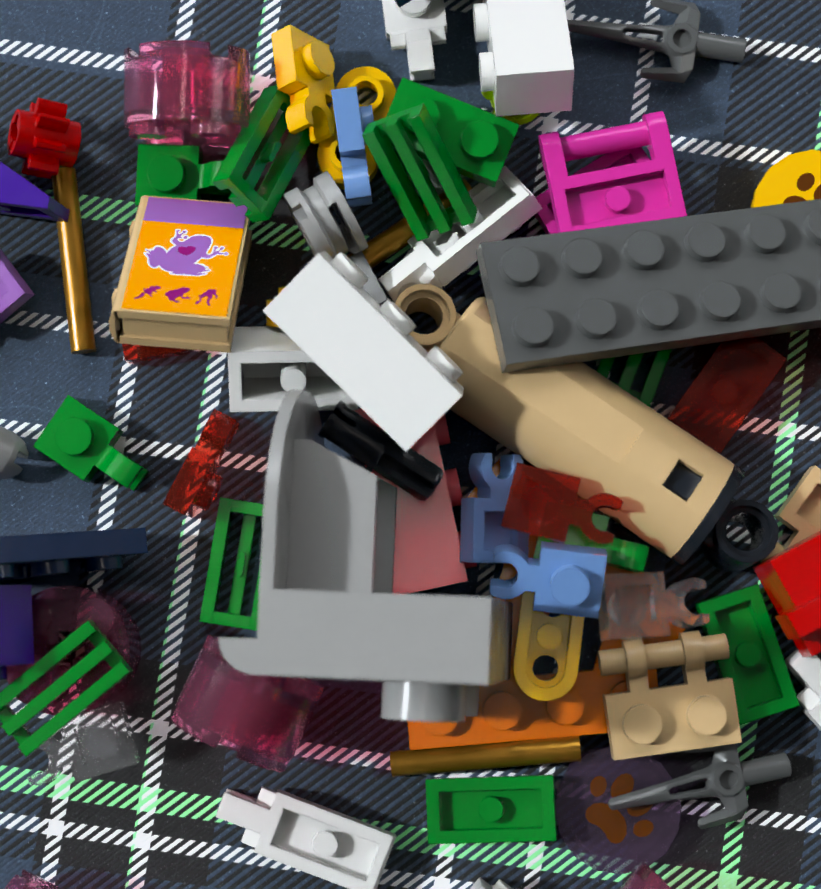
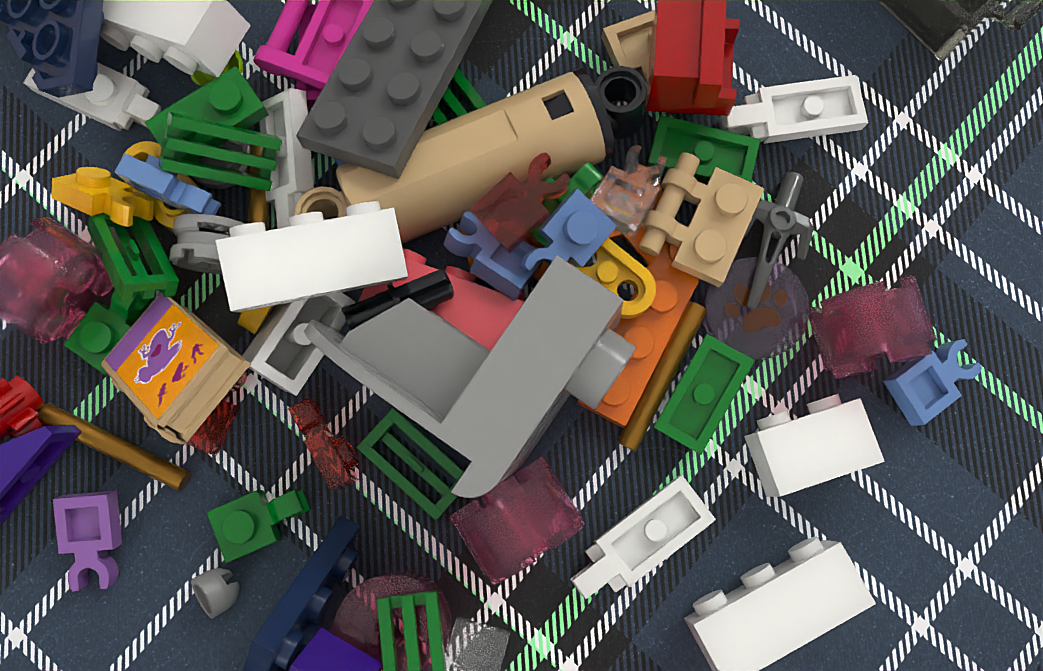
camera: 60 degrees left, 5 degrees down
(726, 390) = (512, 50): clear red plate -> none

